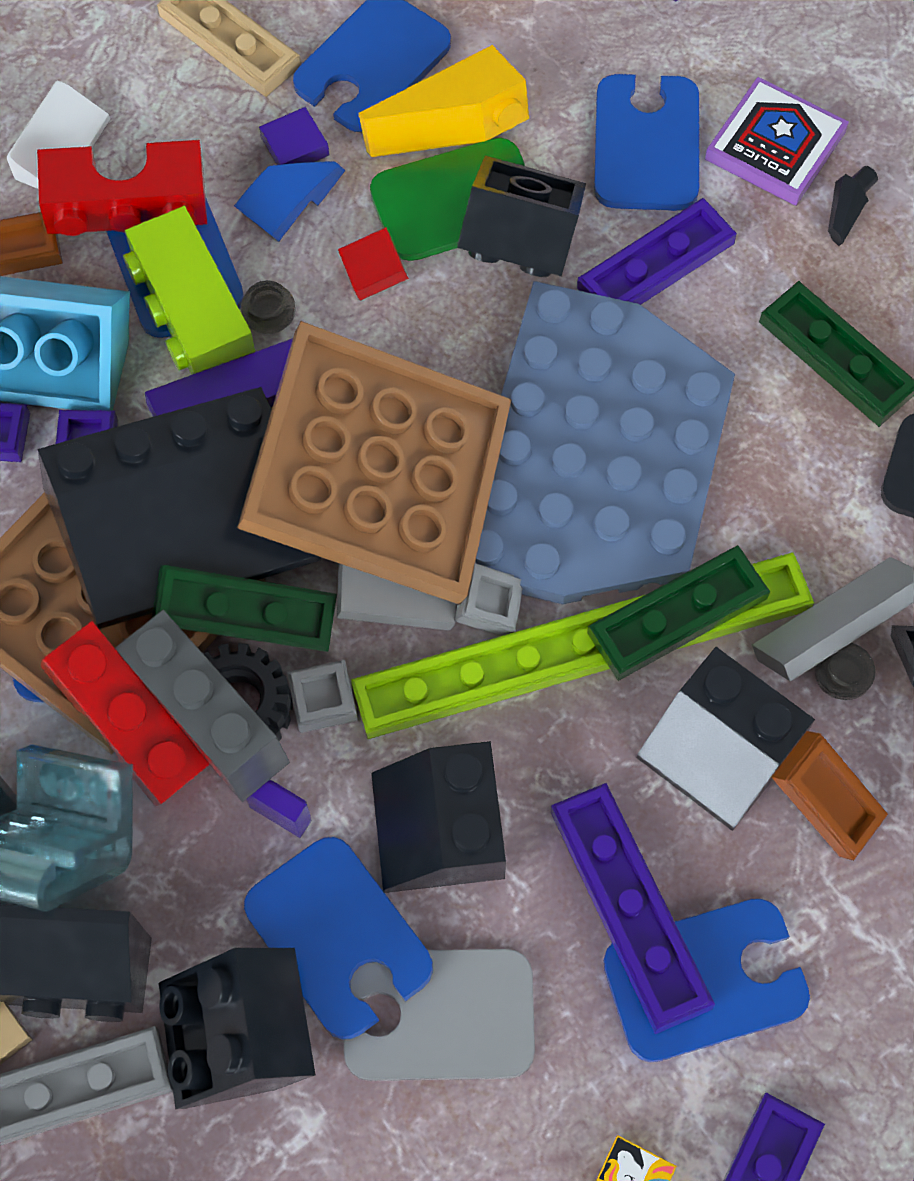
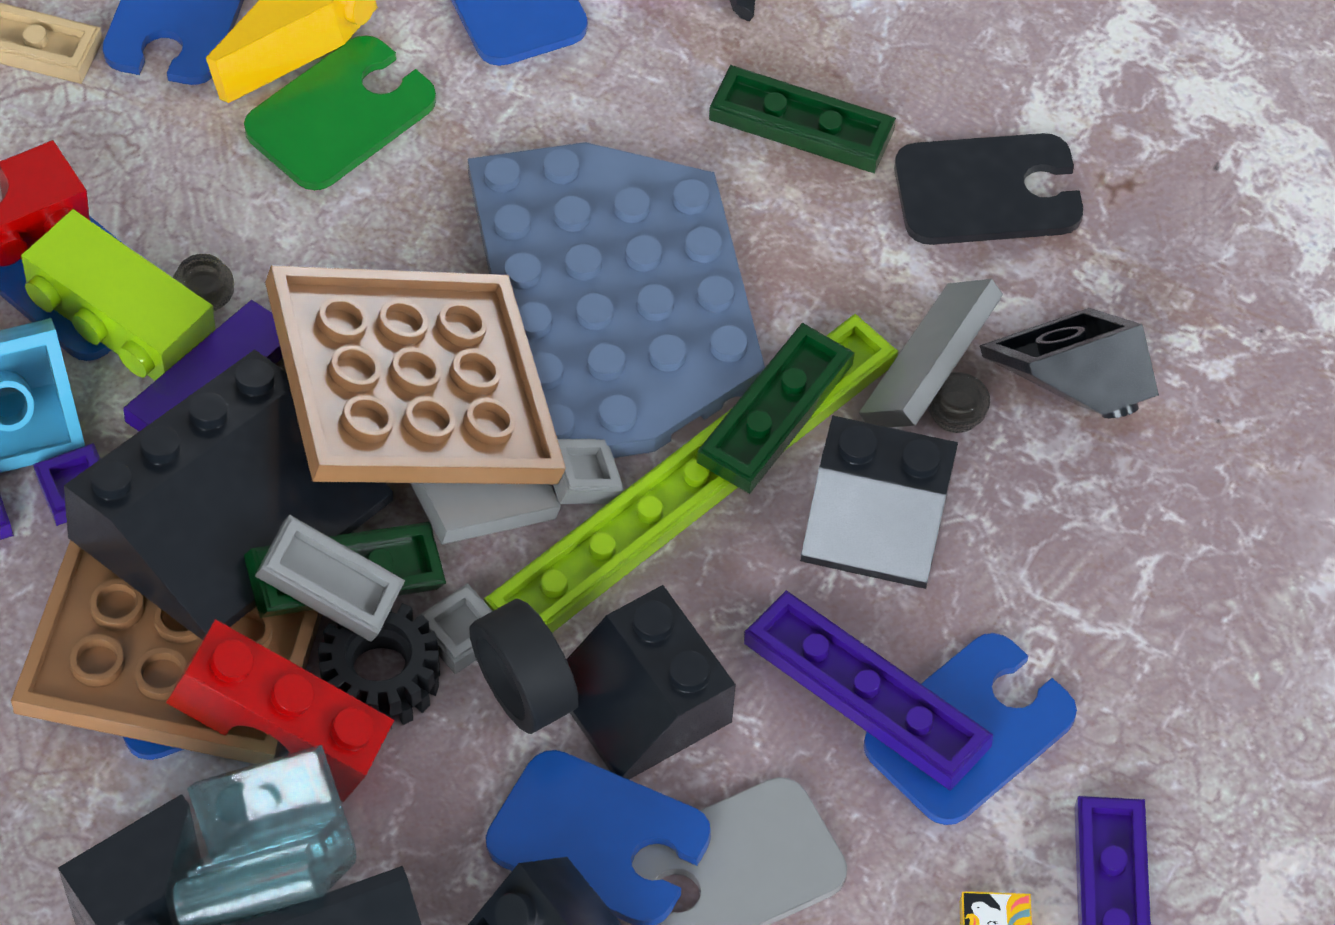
camera: 30 degrees left, 10 degrees down
(204, 705) = (379, 662): dark grey brick -> none
(218, 616) = (330, 578): none -> light grey tile
(281, 807) = (476, 740): dark purple tile -> none
(285, 191) = (160, 167): blue slope -> none
(294, 138) = (139, 114): dark purple tile -> none
(341, 761) = (524, 666): none -> black tyre
(373, 264) = (291, 202): red tile -> none
(521, 217) = (427, 101): black slope -> none
(661, 256) = (582, 90): dark purple tile -> none
(829, 795) = (1003, 509): dark orange tile -> none

